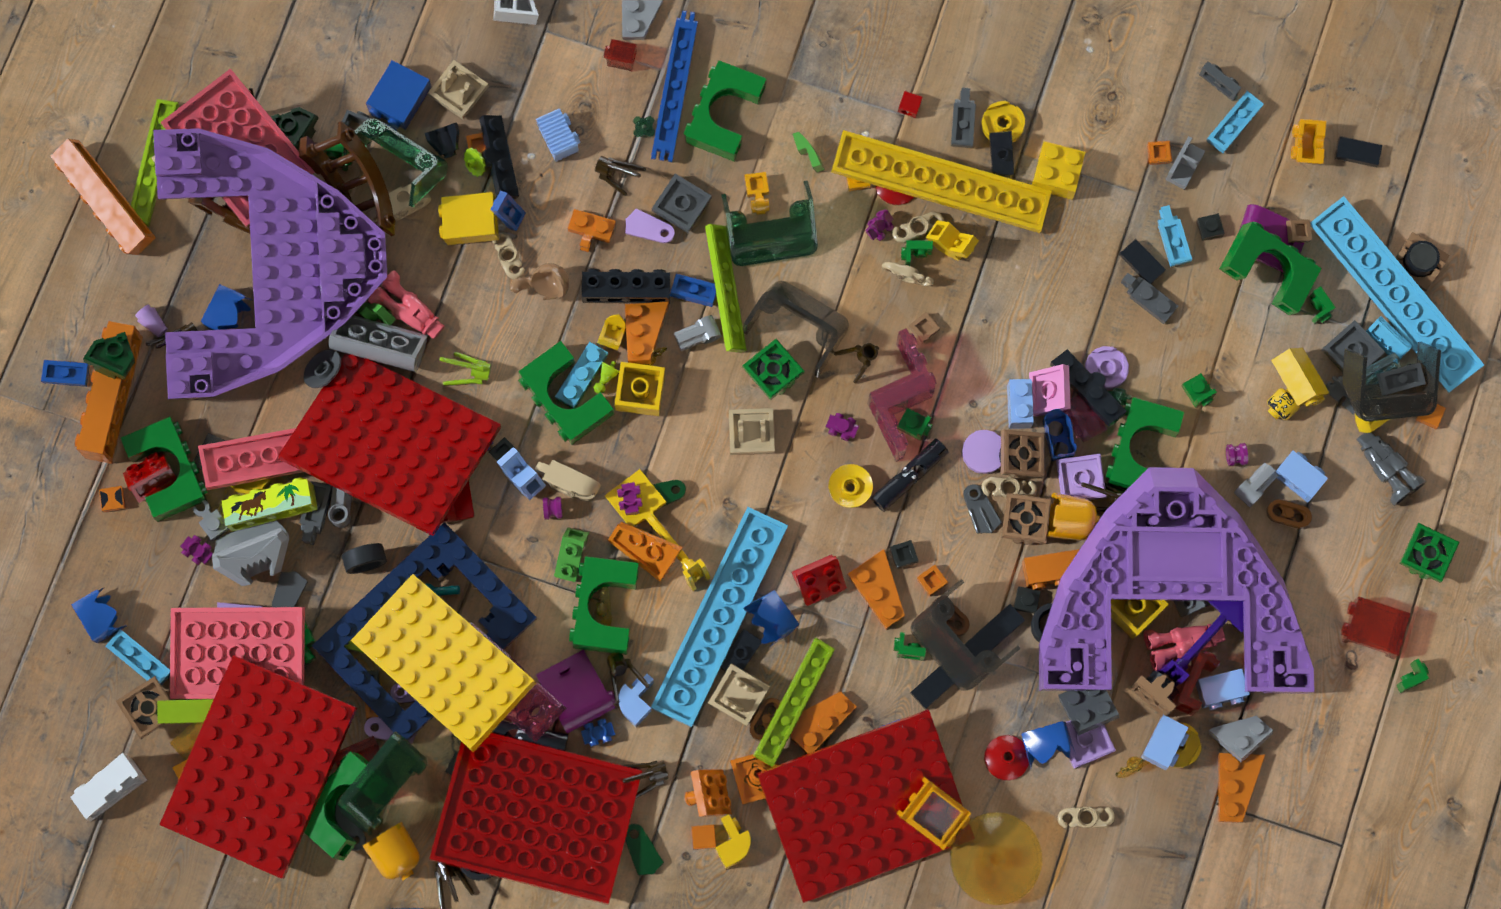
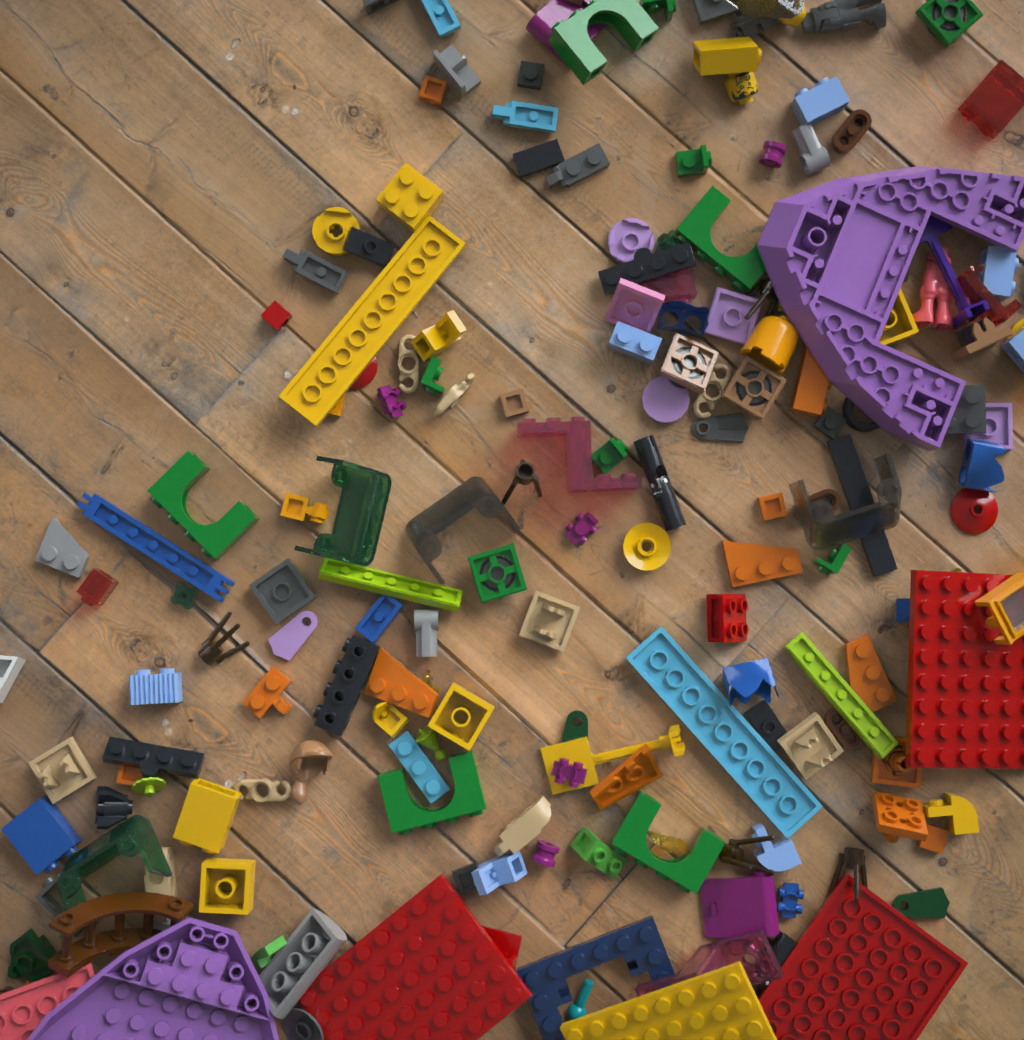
camera: 65 degrees left, 10 degrees up
(411, 310) = (279, 915): coral piece -> none
(418, 257) = (227, 886): none -> yellow brick
(479, 369) = (372, 868): lime plant -> none
(508, 210) = (216, 774): blue plate -> none
(804, 147) = (276, 441): bright green slope -> none
(904, 554) = (736, 523): pearl dark grey plate -> none

